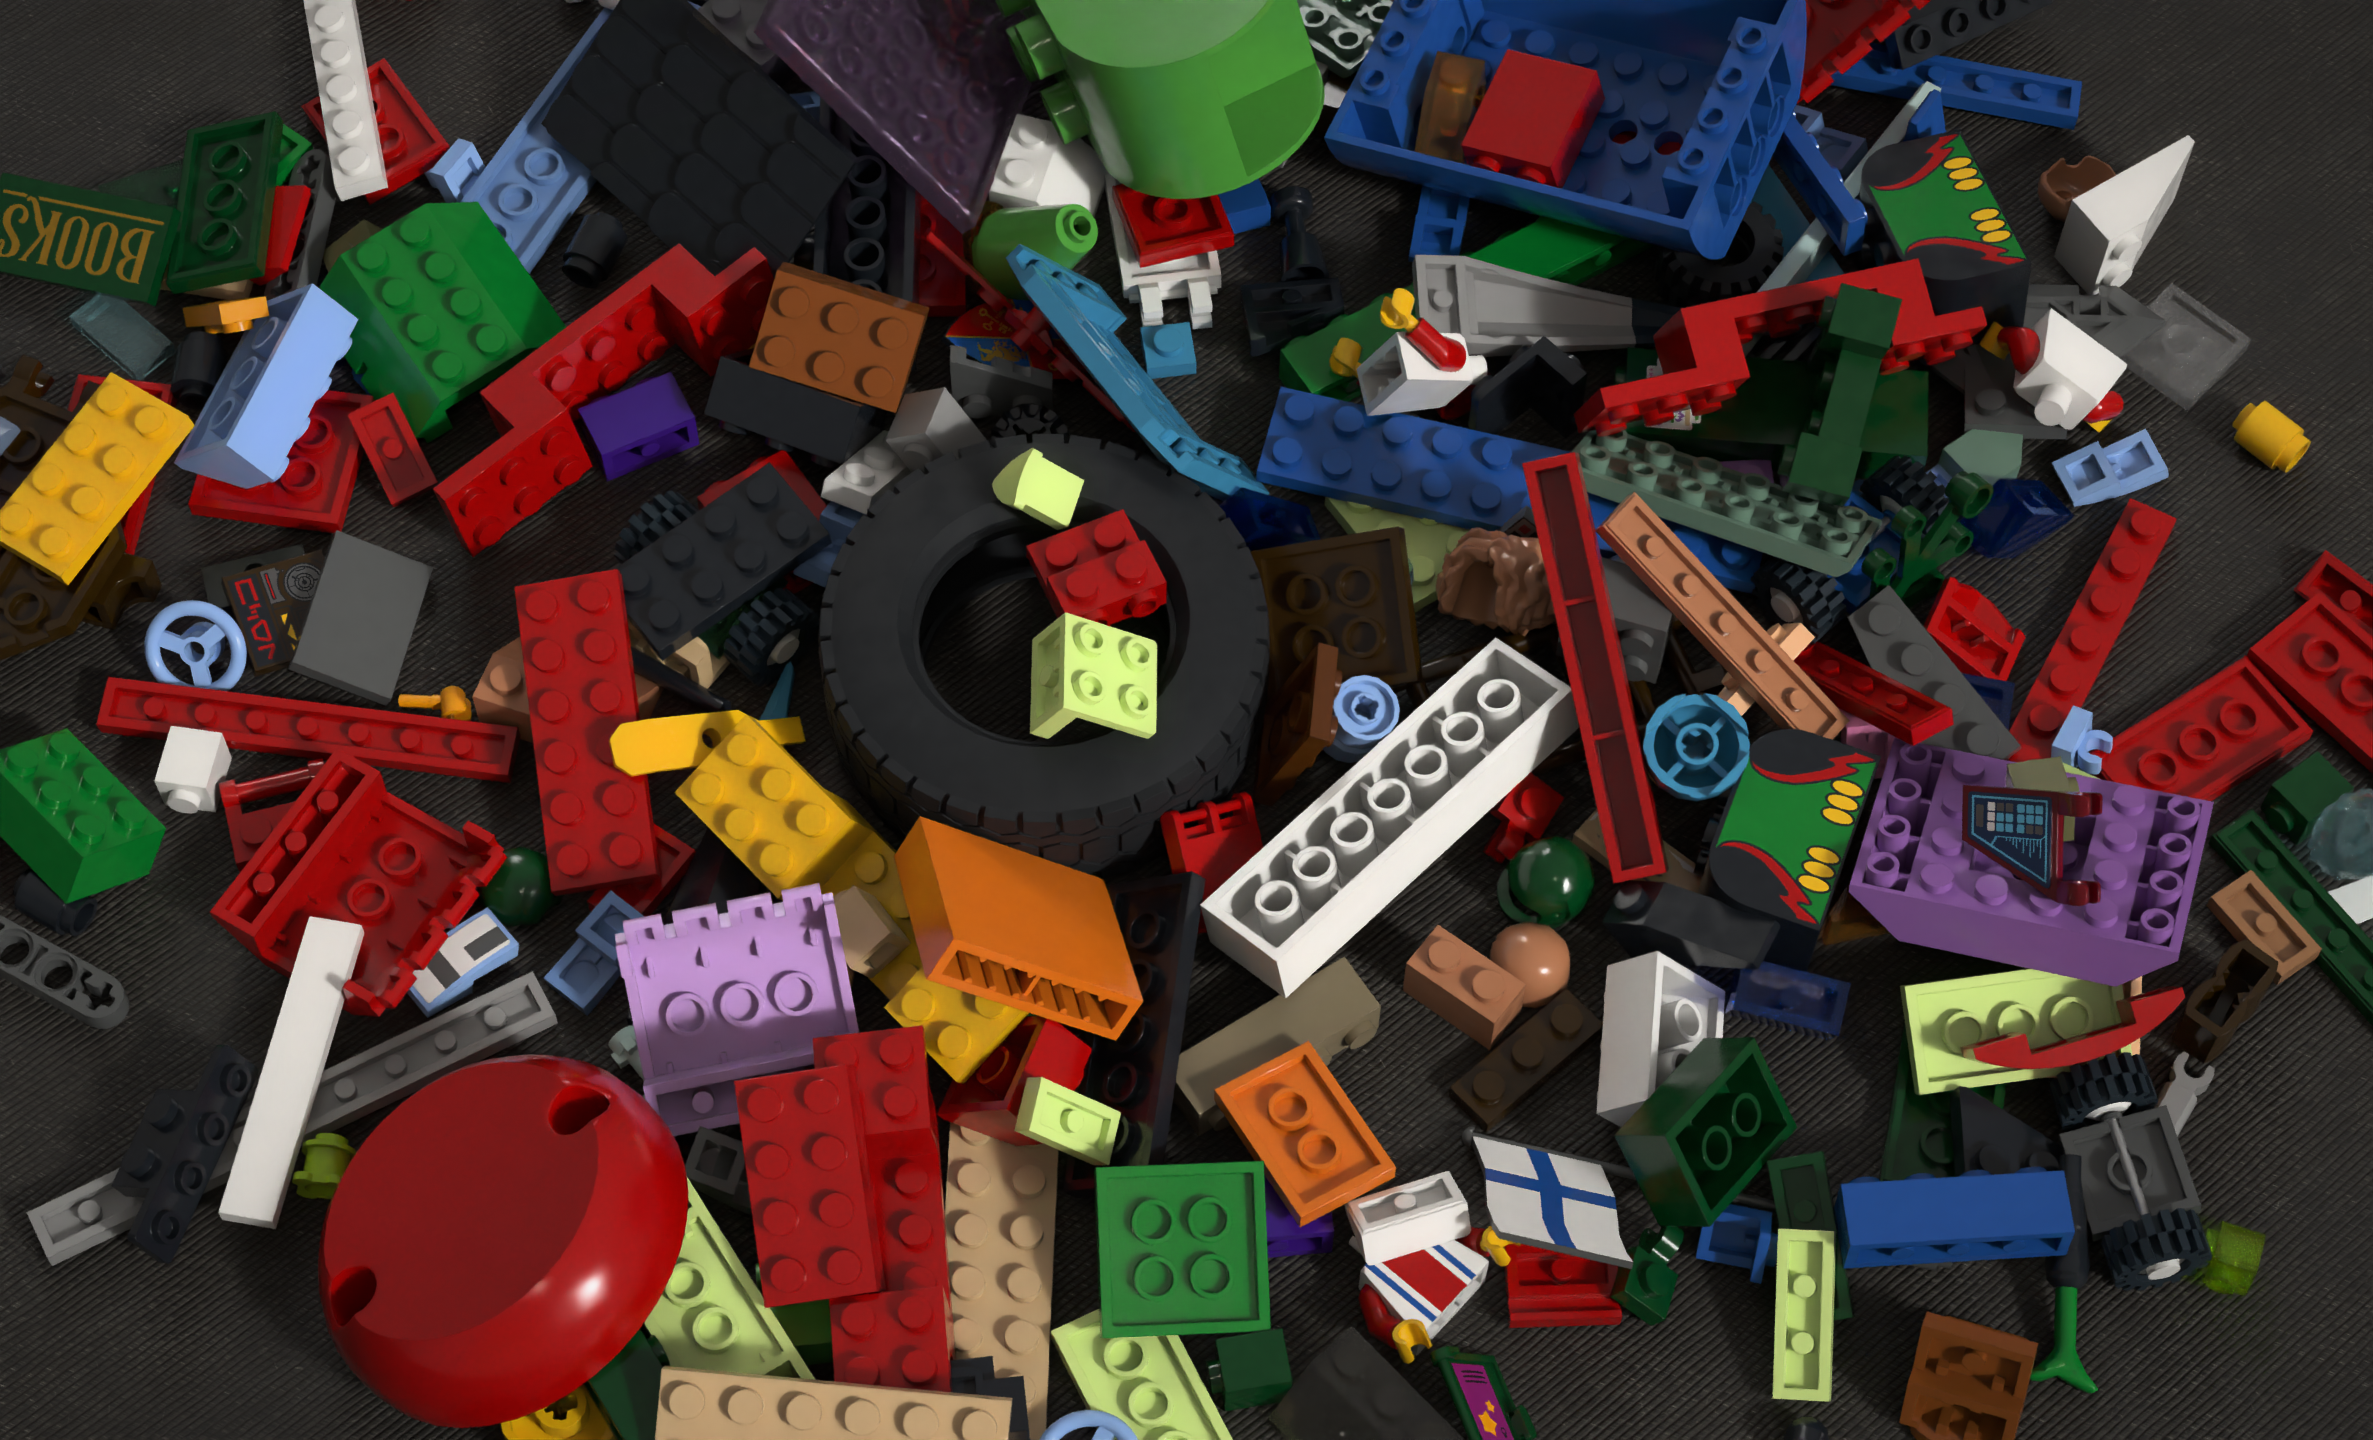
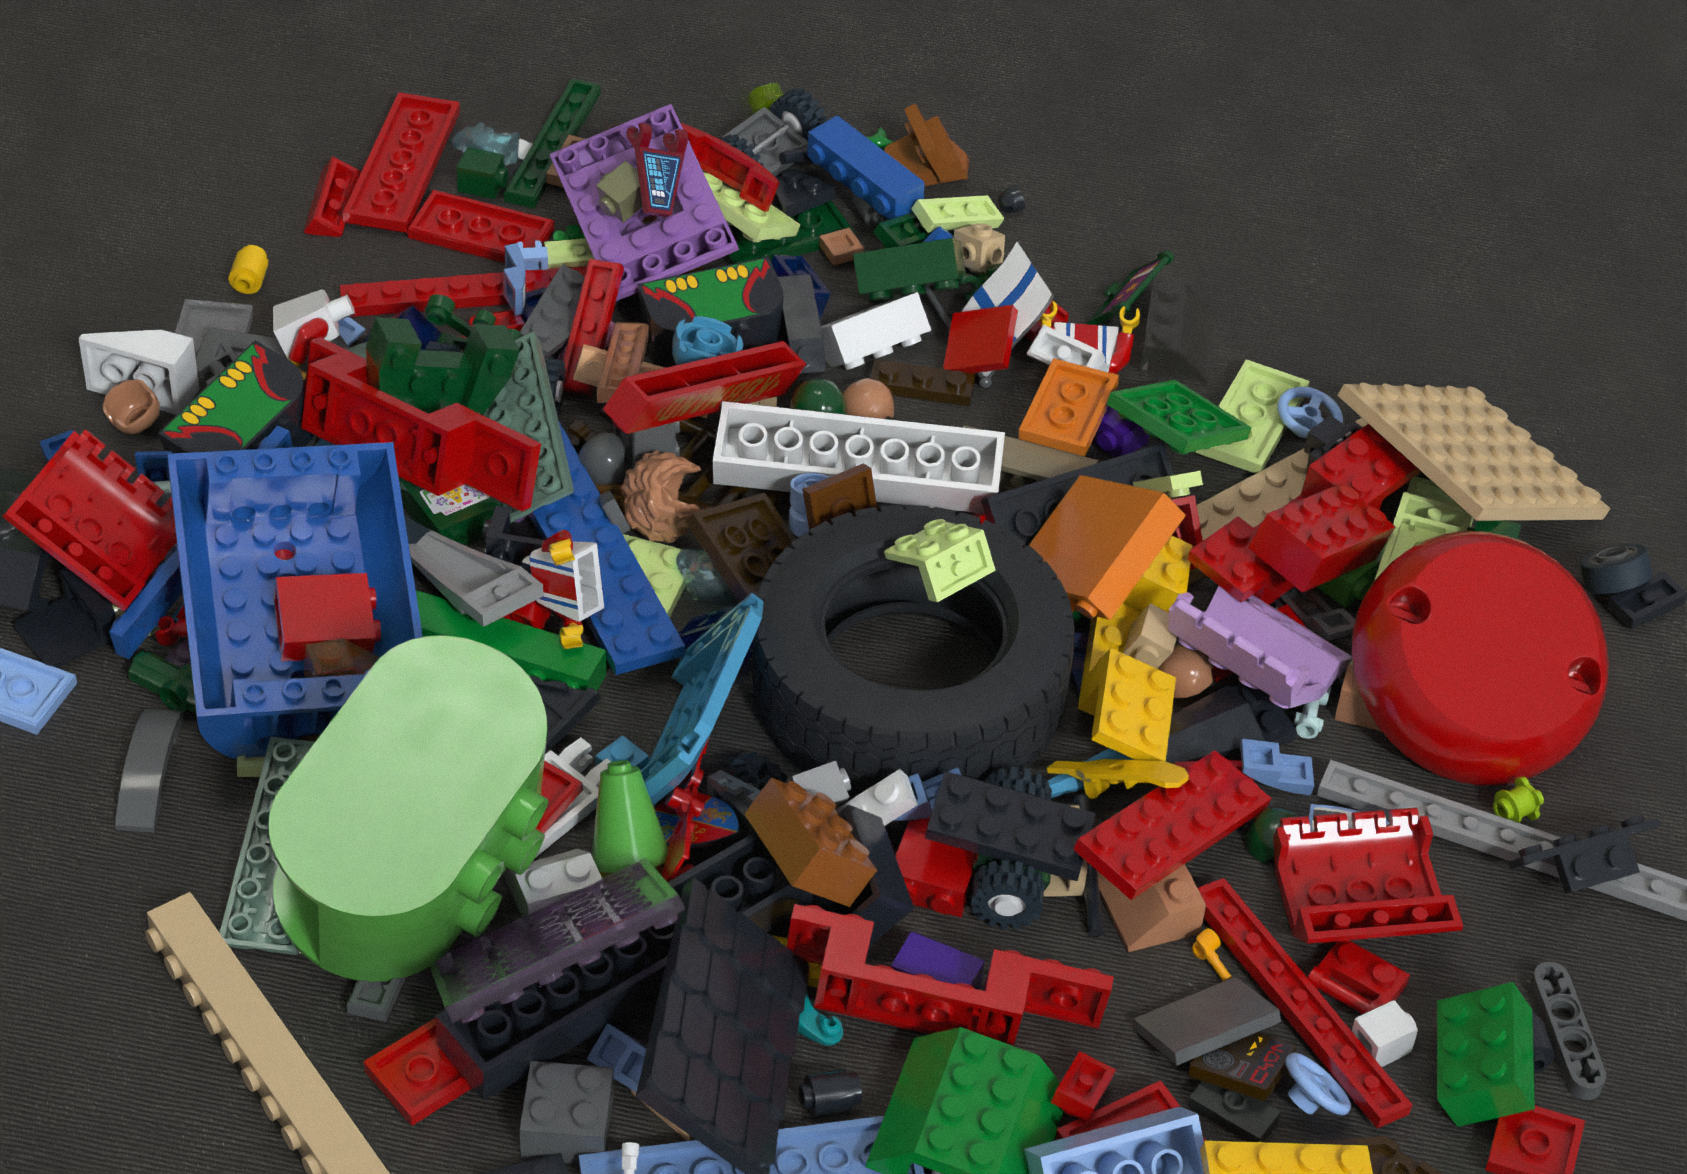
camera: 130 degrees left, 15 degrees down
(291, 1073) = (1490, 843): white tile -> none
(1039, 489) = (847, 649): yellowish green tile -> none
(1099, 571) = (869, 593): red plate -> none
(1250, 1369) = (1200, 380): dark green brick -> none
(1463, 987) = (913, 398): nougat brick -> none
(1524, 1147) = (981, 339): none -> red tile
(1716, 1293) = (980, 246): none -> tan brick
(1857, 1140) = (840, 246): none -> nougat plate
(2008, 669) = (514, 278): none -> medium blue slope

